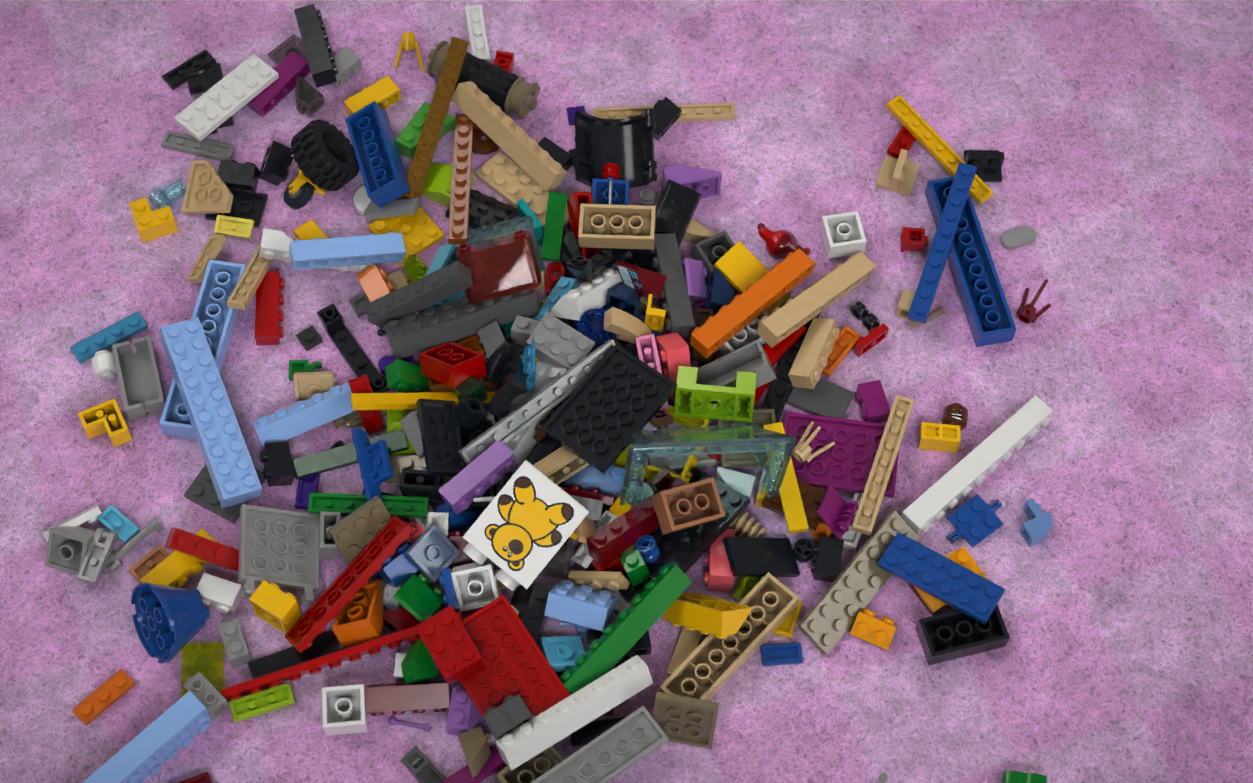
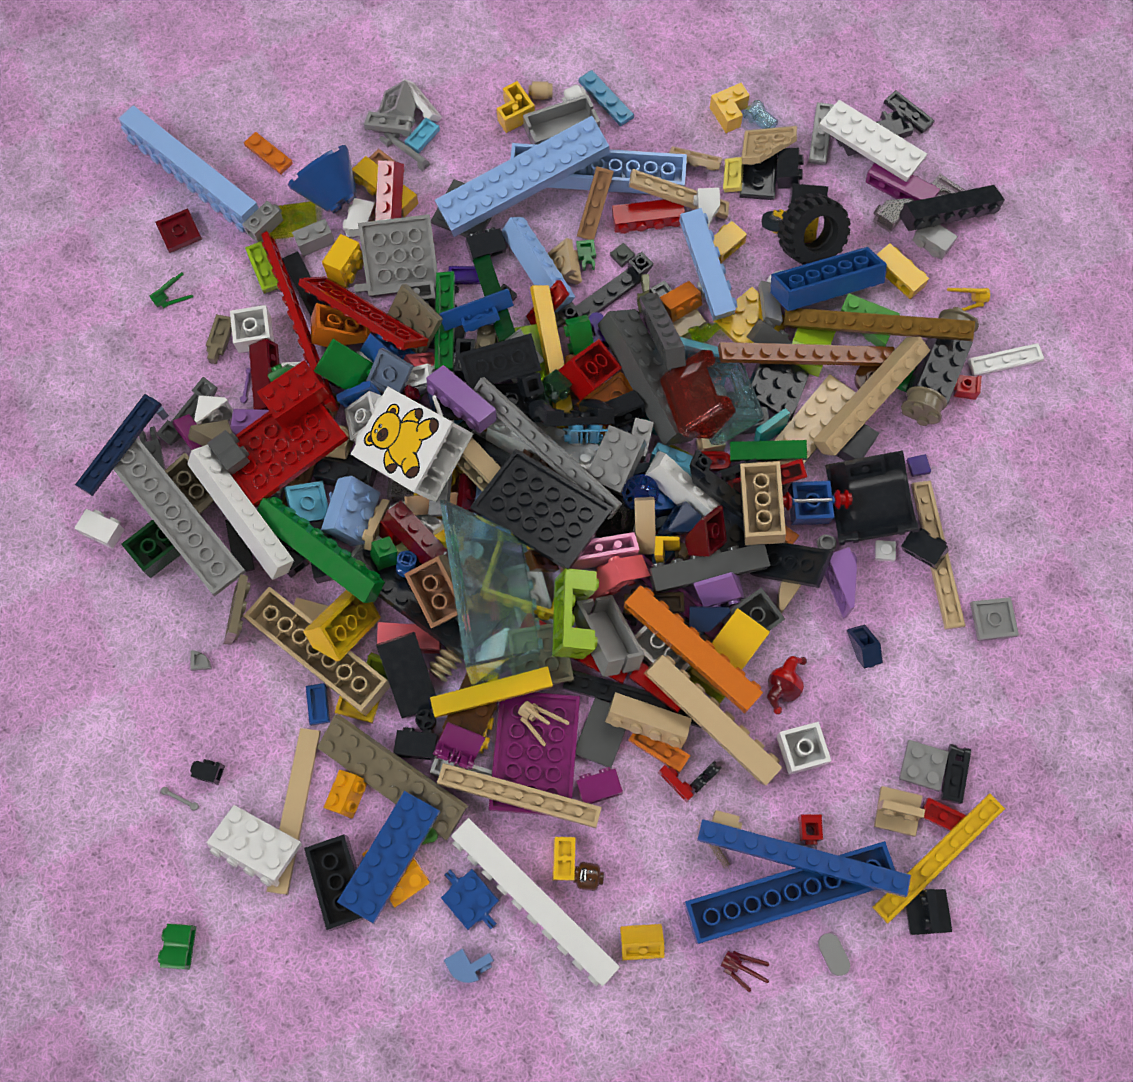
camera: 90 degrees right, 10 degrees up
(86, 397) = (541, 90): none -> tan brick
(250, 351) = (595, 203): none -> medium nougat plate
(346, 751) = (218, 338): none -> dark tan hinge
(358, 318) = (645, 289): none -> olive slope
(433, 211) = (765, 333): none -> dark grey brick
(446, 752) = (212, 409): none -> white slope
(660, 152) = (885, 550): none -> white plate
(729, 80) = (994, 619): none -> light grey plate
(729, 773) = (199, 661): none -> light grey tile
(748, 178) = (865, 646): none -> dark blue slope
(849, 759) = (207, 771): none -> black brick
(858, 151) = (923, 765): none -> light grey plate
(866, 128) = (955, 774): none -> black plate
(889, 678) = (297, 797): none -> tan tile
(926, 712) = (253, 846): none -> white bracket
(1010, 380) = (642, 942): none -> yellow panel

